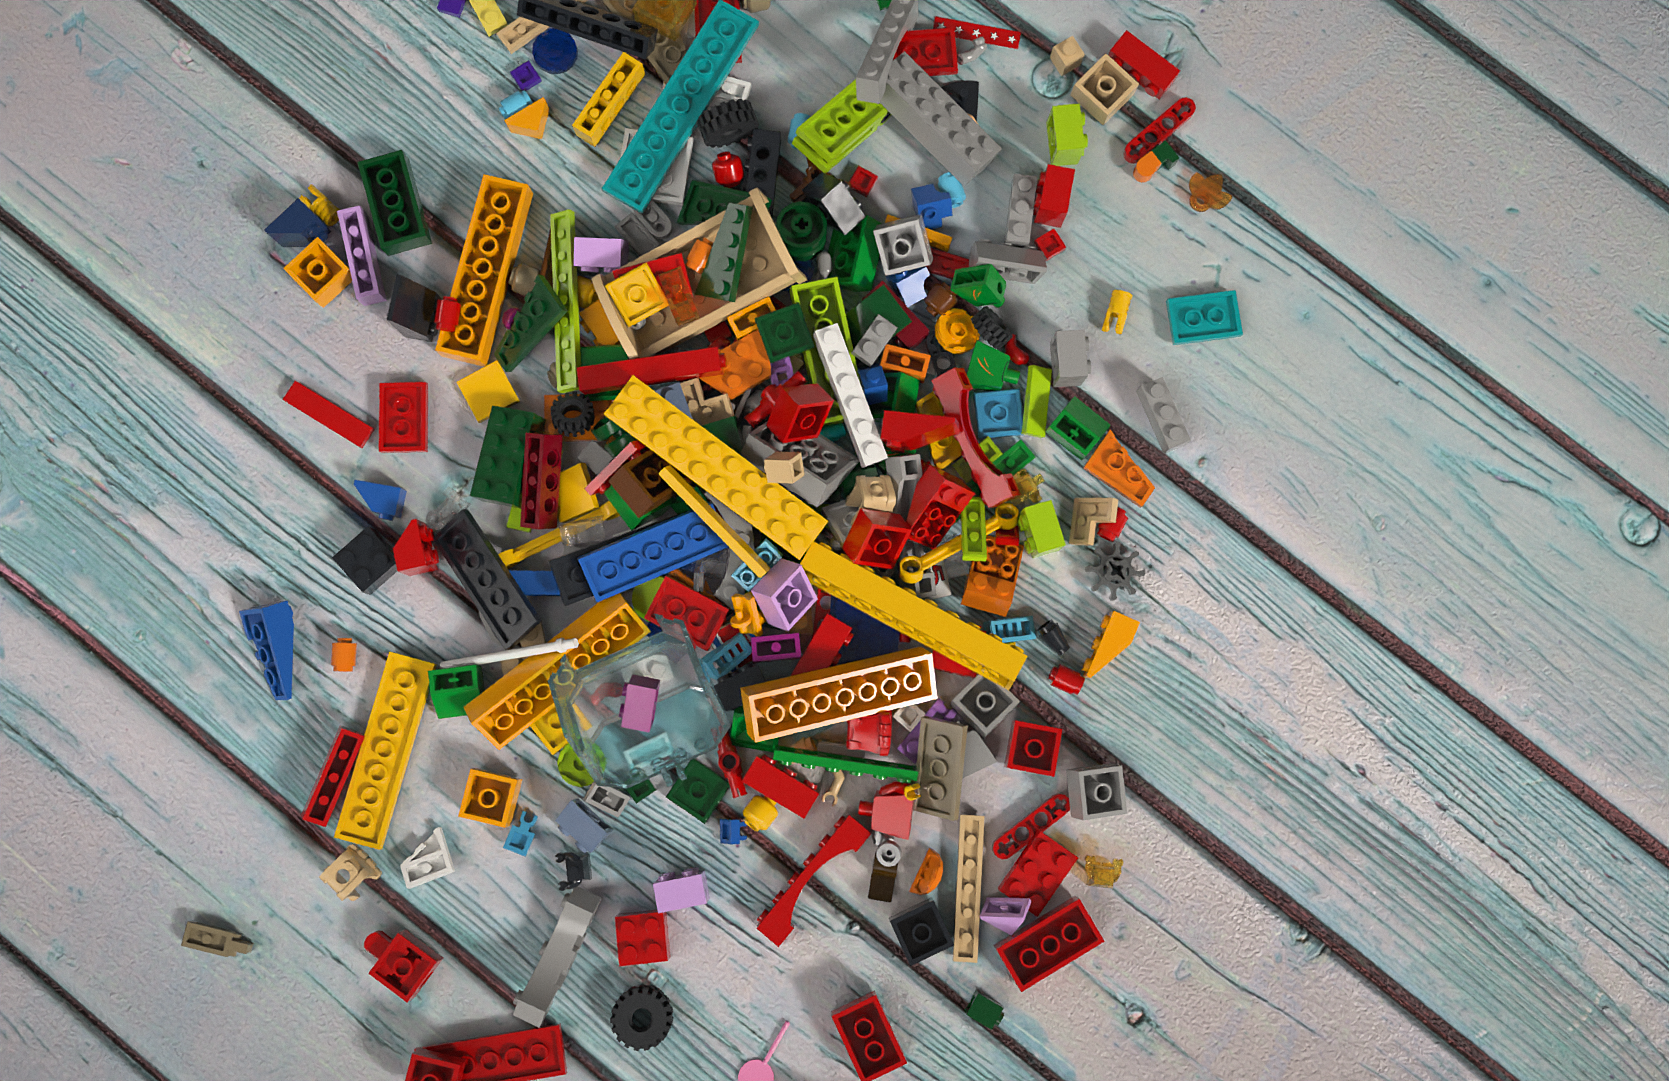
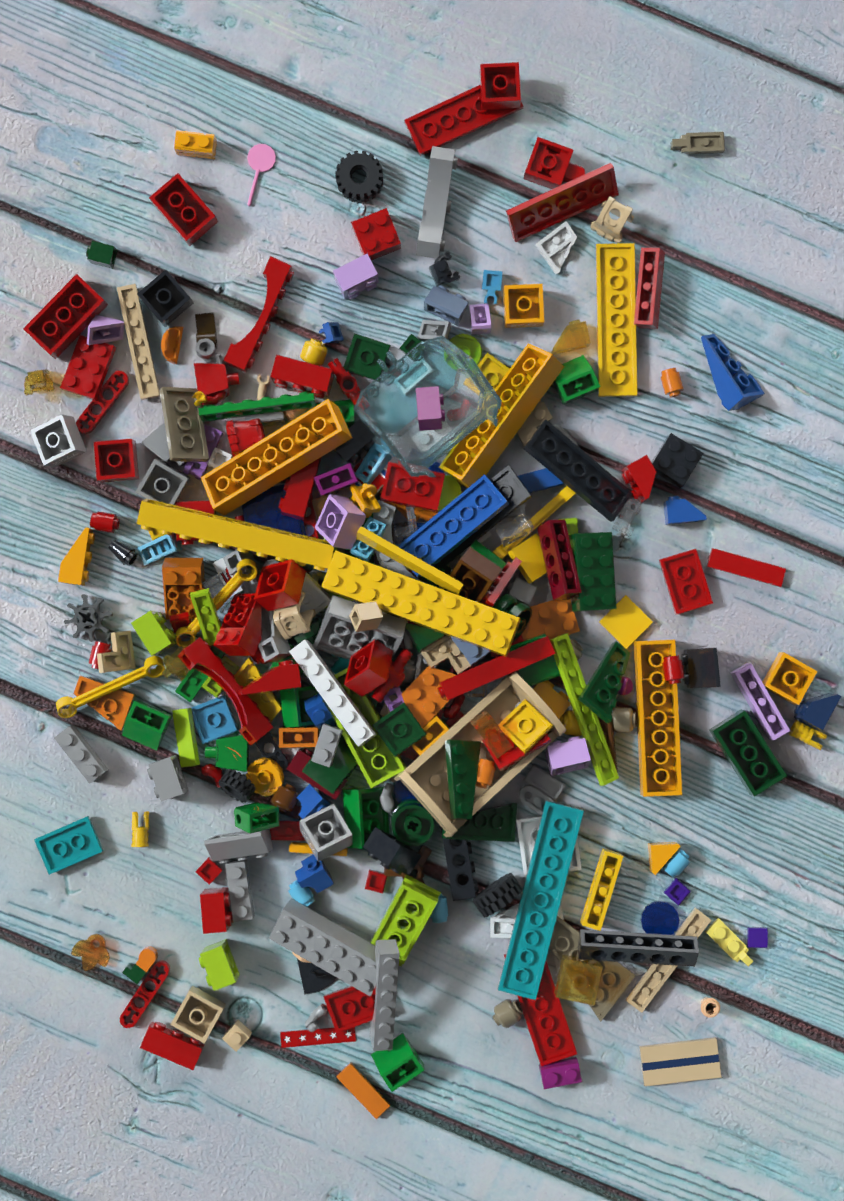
camera: 165 degrees right, 5 degrees up
(402, 912) = (562, 202): none -> red plate
(444, 743) = (572, 338): none -> clear yellow slope
(547, 798) = (480, 319): none -> lavender slope
(561, 645) = (501, 432): white bar -> none
(572, 403) = (545, 609): black tyre -> none
(728, 169) = (487, 857): red head -> none
(1164, 473) = (109, 687): none -> yellow piece

